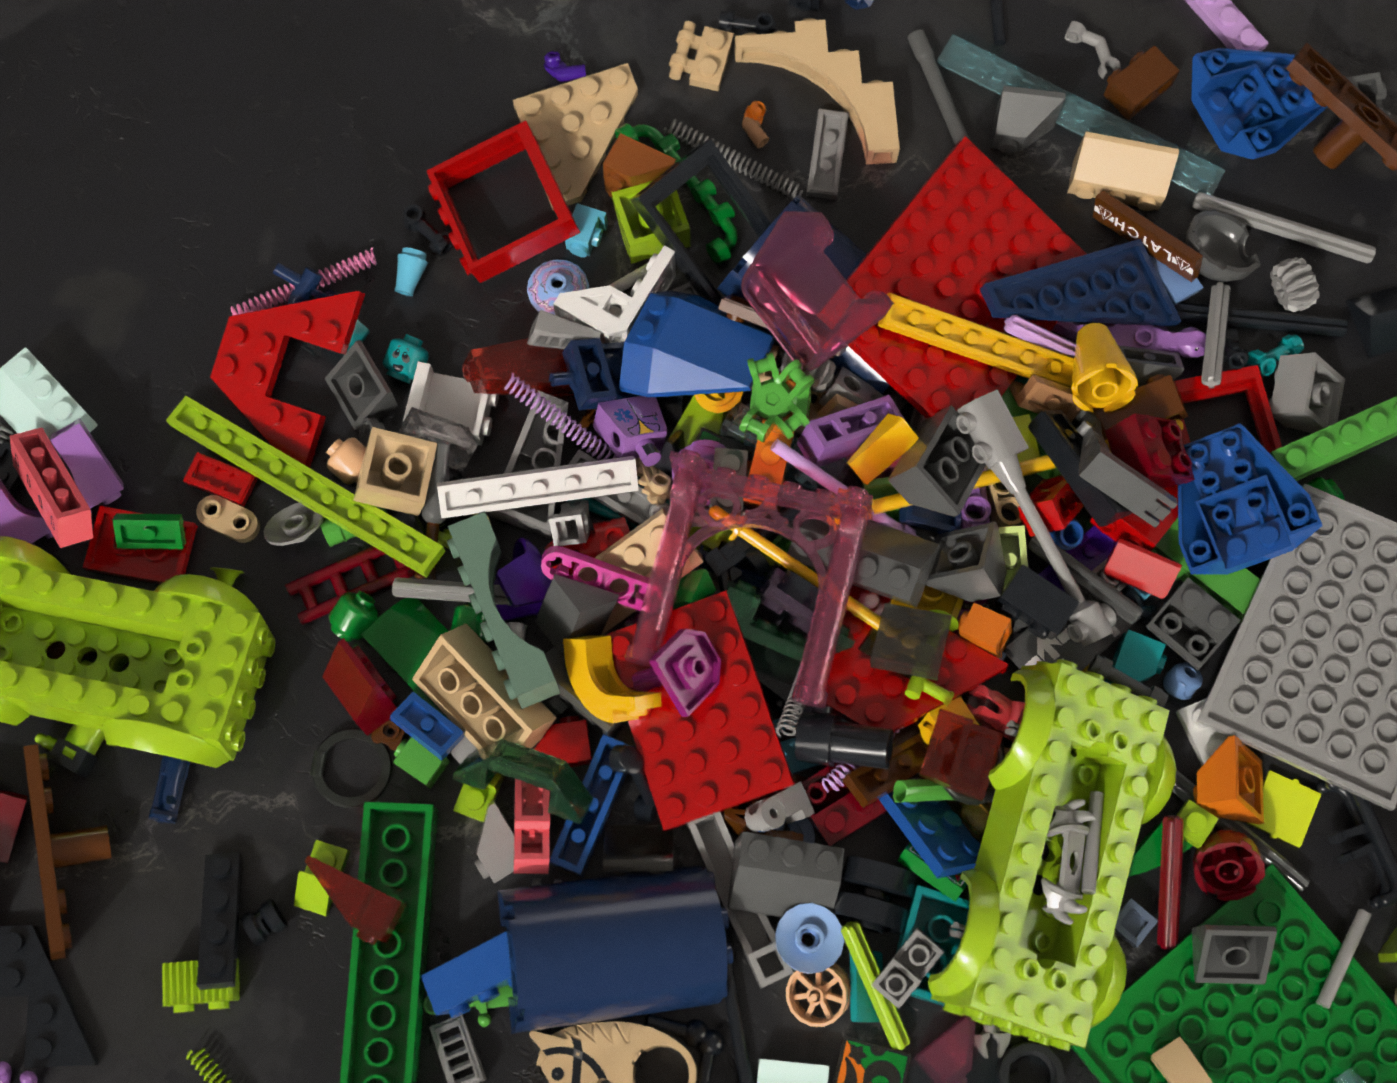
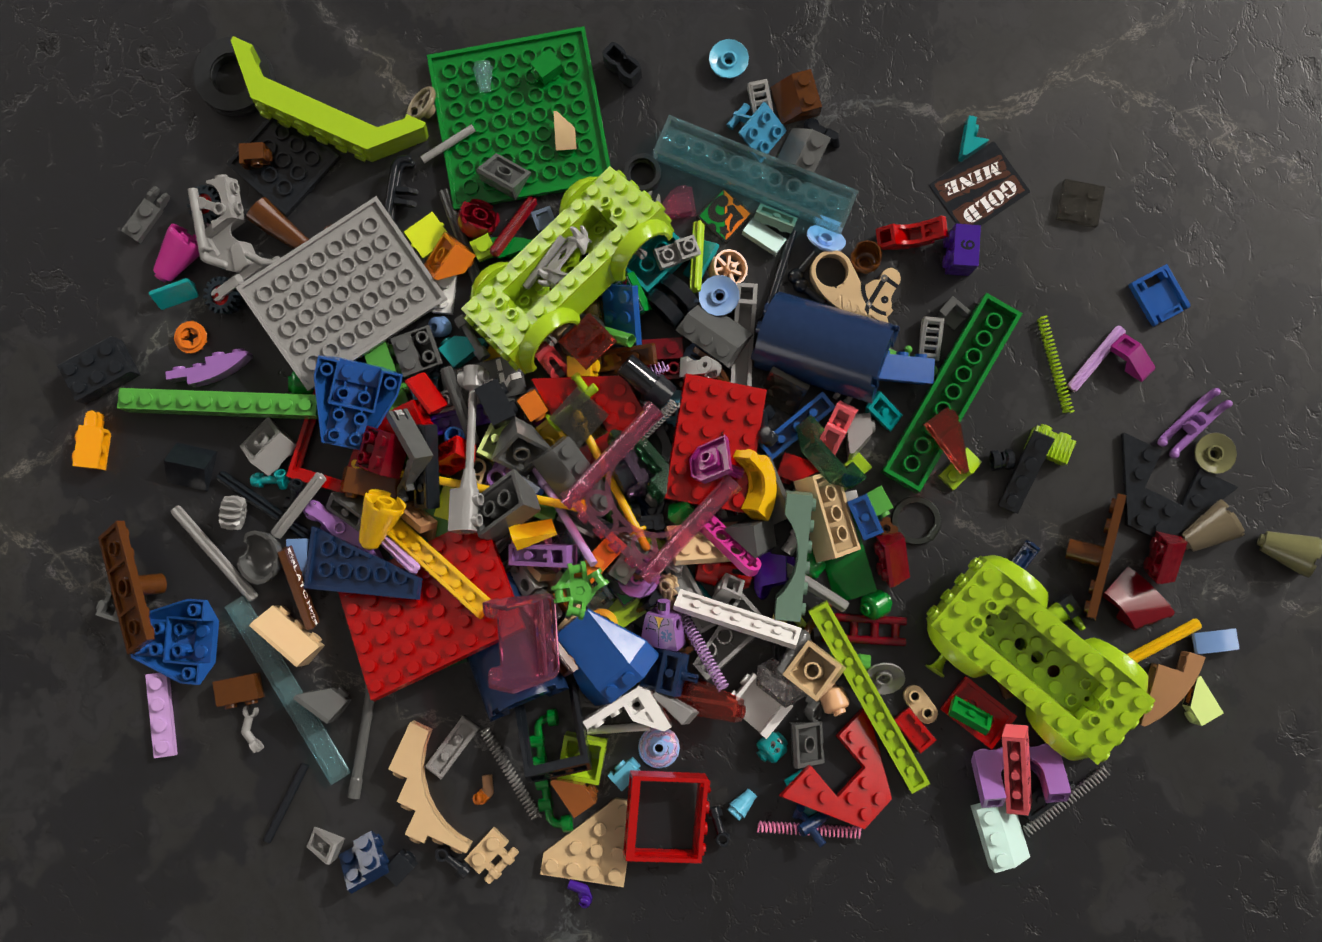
camera: 145 degrees left, 10 degrees up
(473, 898) = (883, 411): none -> teal slope

